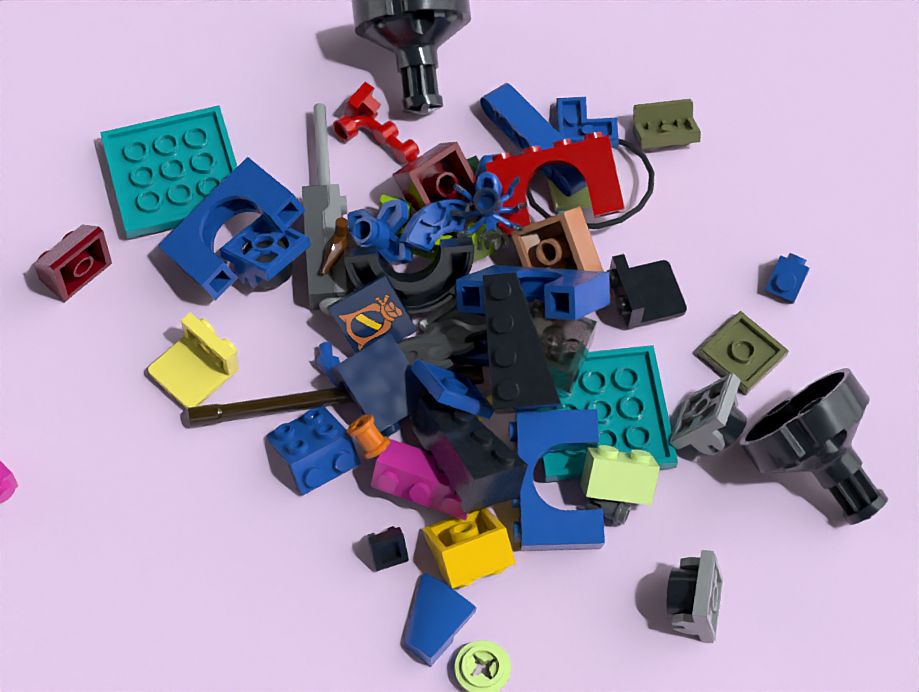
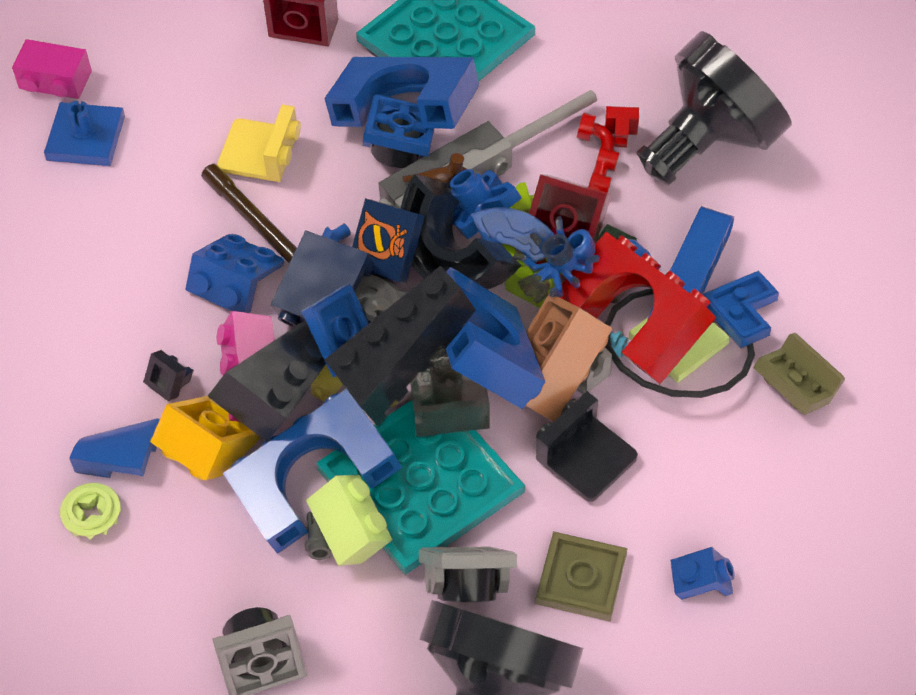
camera: 65 degrees right, 5 degrees down
(68, 498) = (84, 134): none -> blue tile
(368, 436) = (256, 295): orange bush -> none

